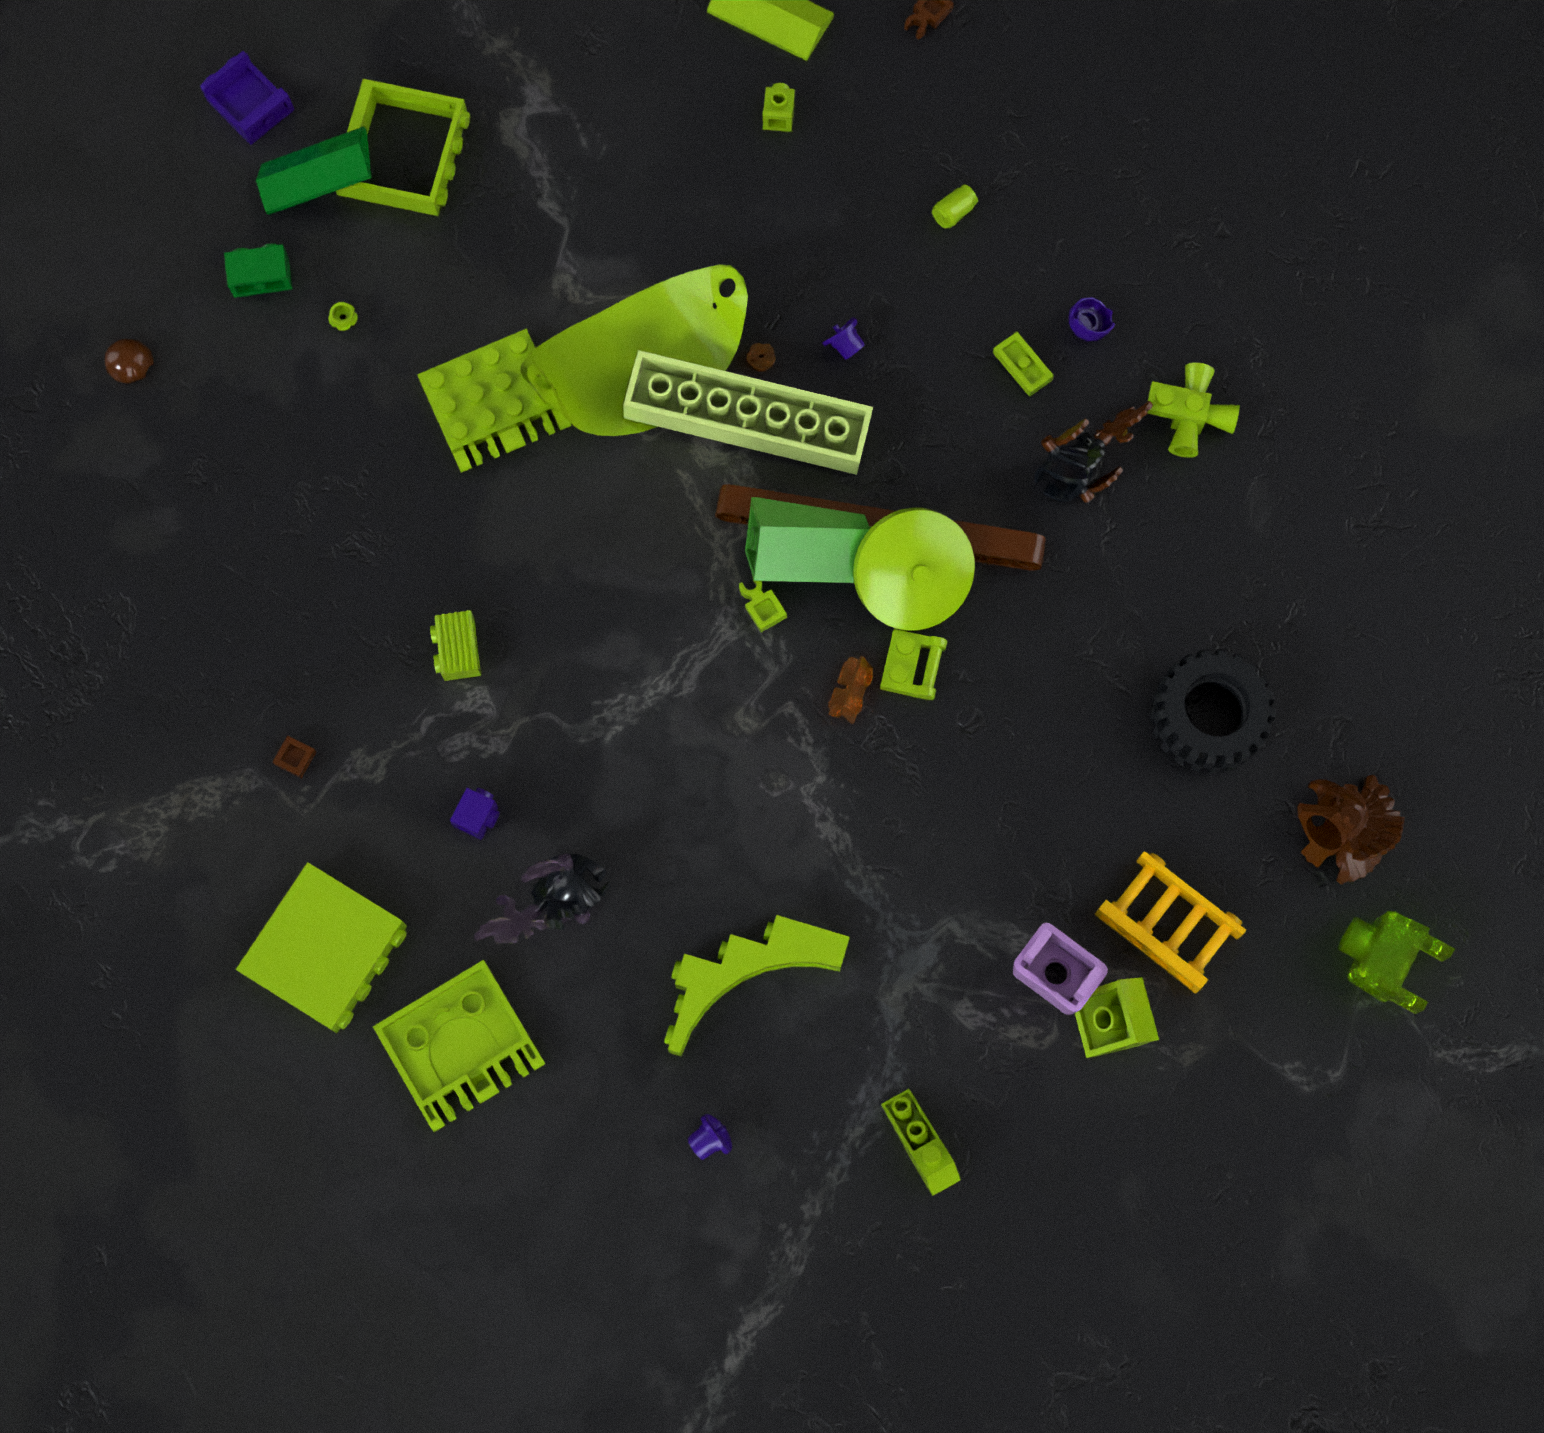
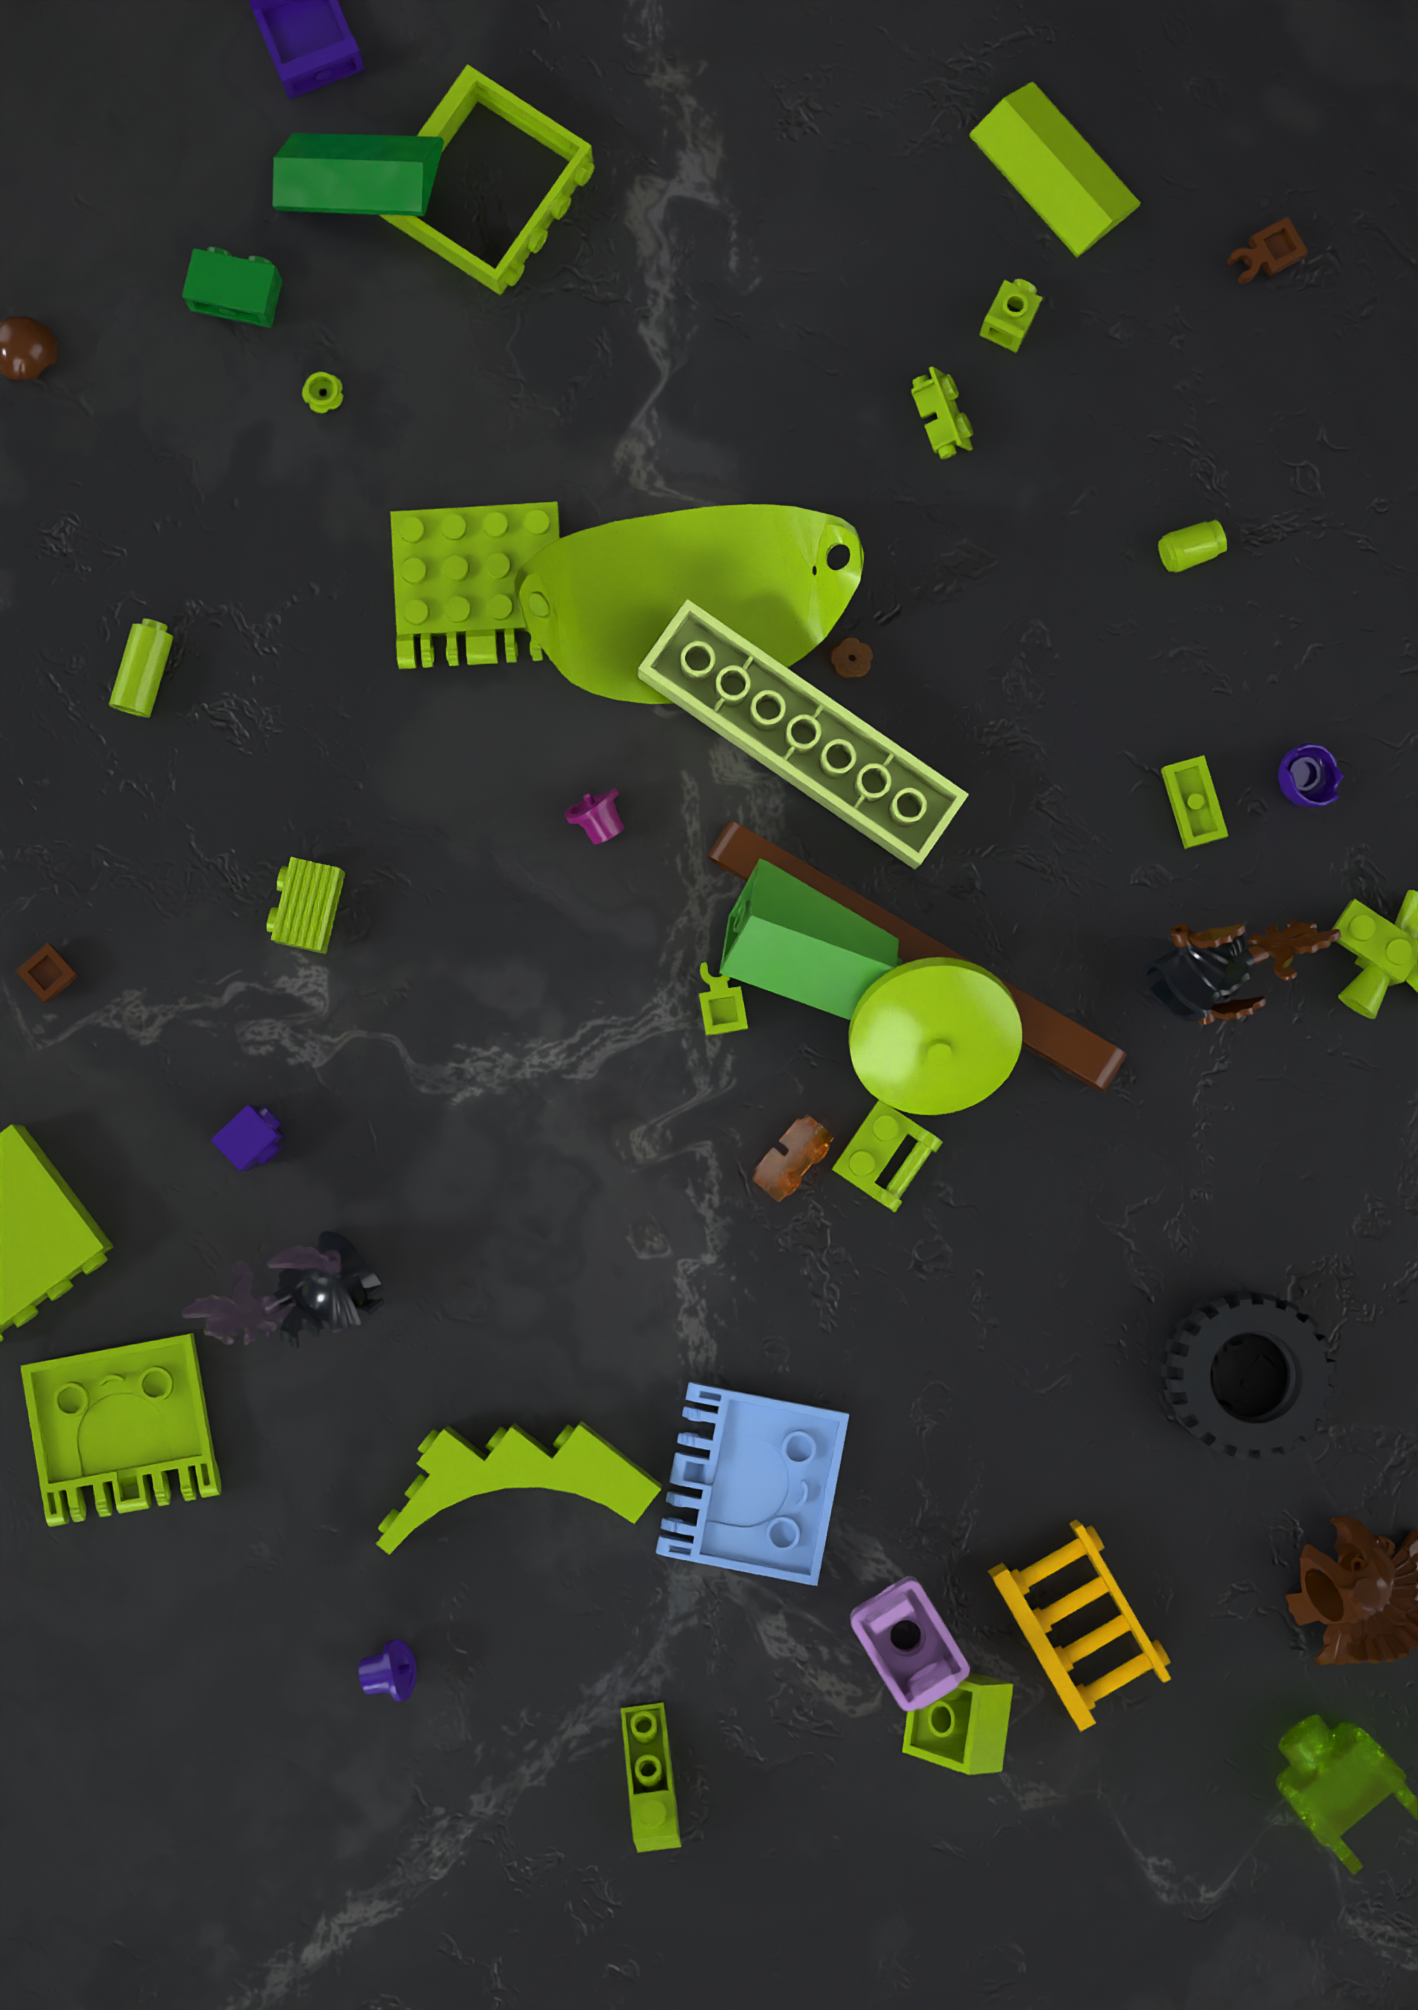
camera: 20 degrees right, 10 degrees up
(286, 534) = (141, 668): none -> lime brick
(631, 516) = (597, 816): none -> magenta piece
(751, 175) = (938, 397): none -> lime hinge
(846, 339) = (972, 679): dark purple piece -> none
(916, 910) = (762, 1485): none -> light blue hinge

